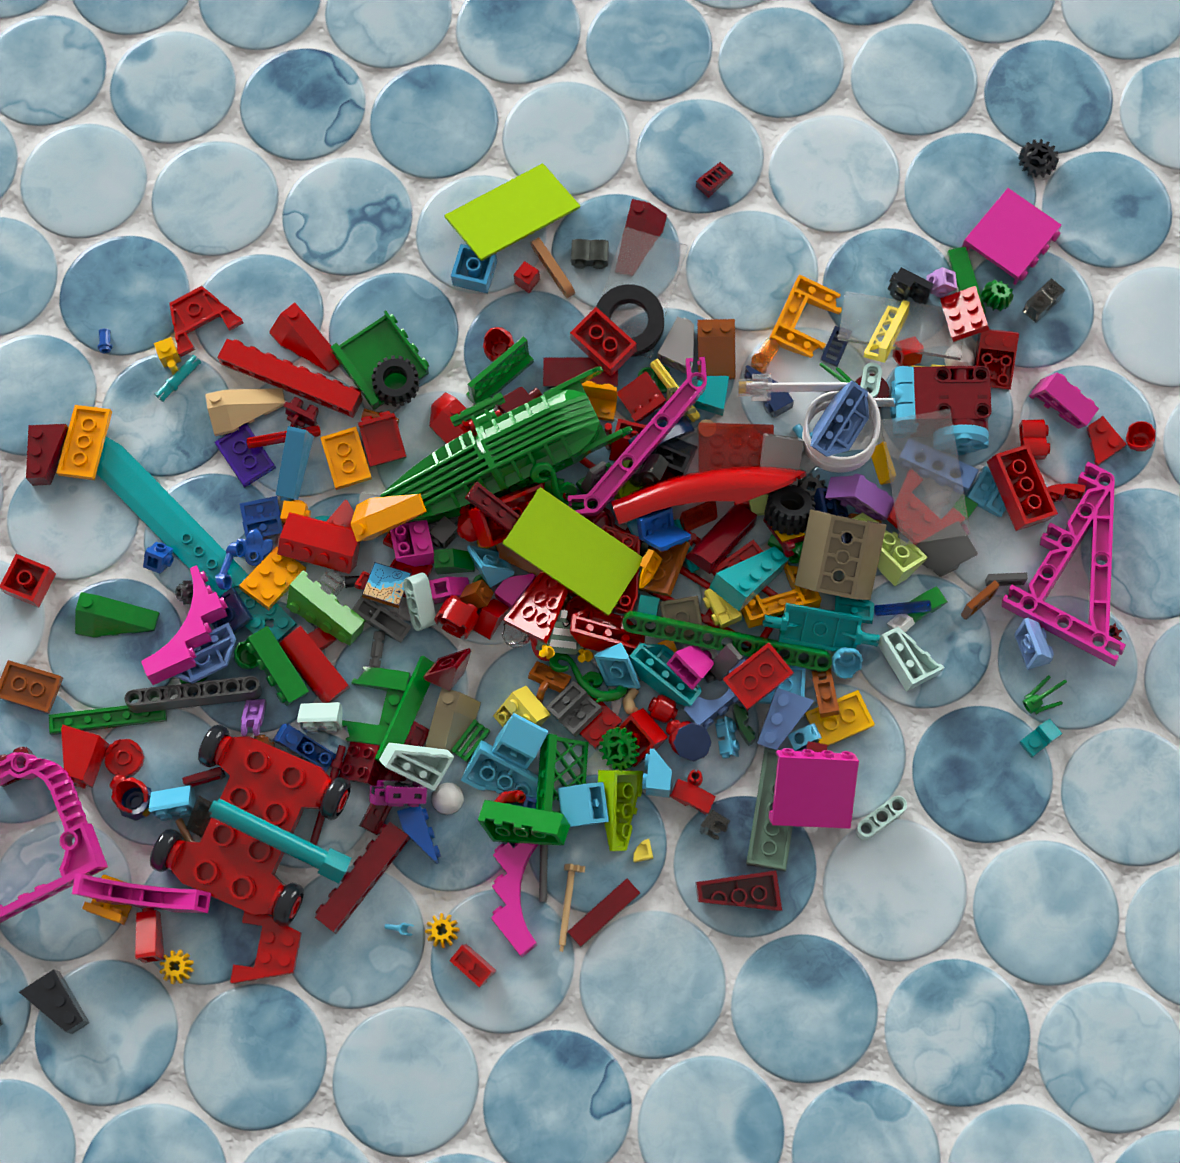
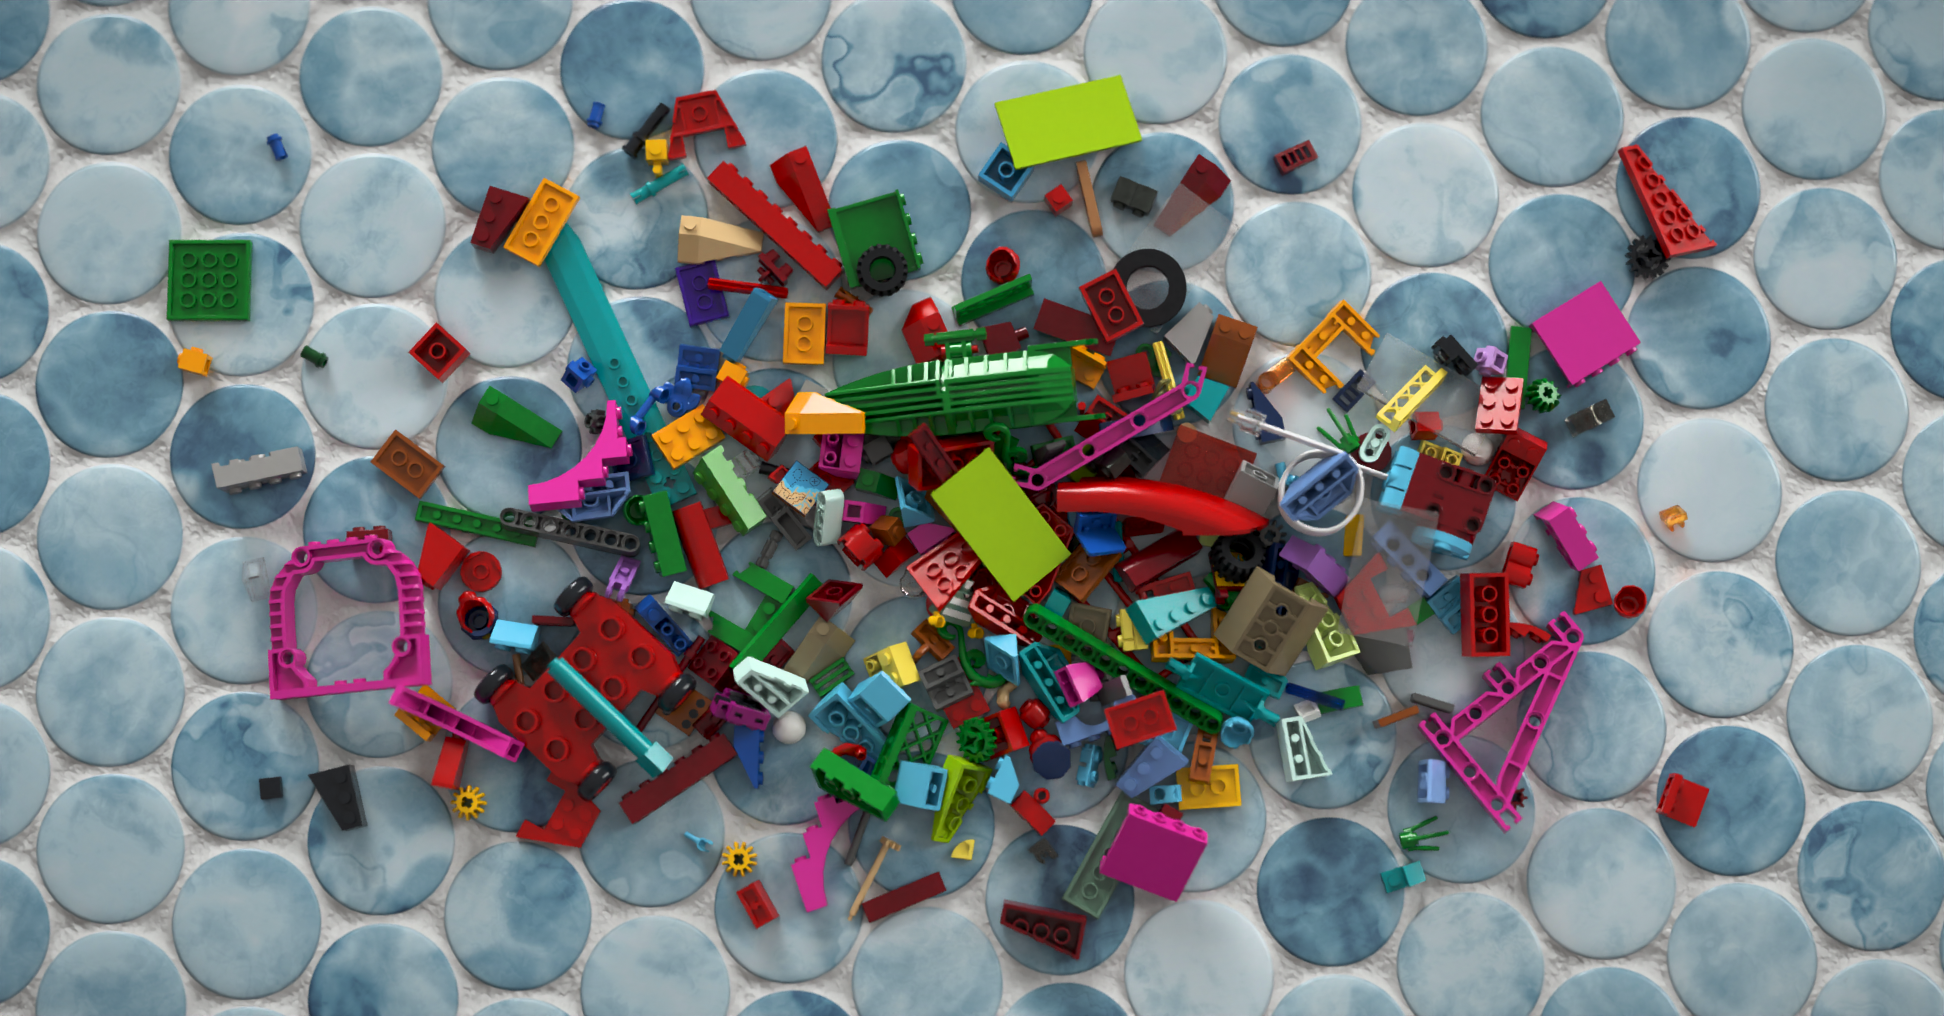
camera: 15 degrees right, 10 degrees up
(148, 347) = (639, 137): none -> black pin
(350, 817) = (687, 713): none -> dark orange tile
(649, 565) = (1073, 563): light orange plate -> none
(887, 810) = (1222, 901): light aqua beam -> none
(1036, 116) = (1666, 211): none -> red wing
(1146, 355) = (1673, 516): none -> clear orange tile

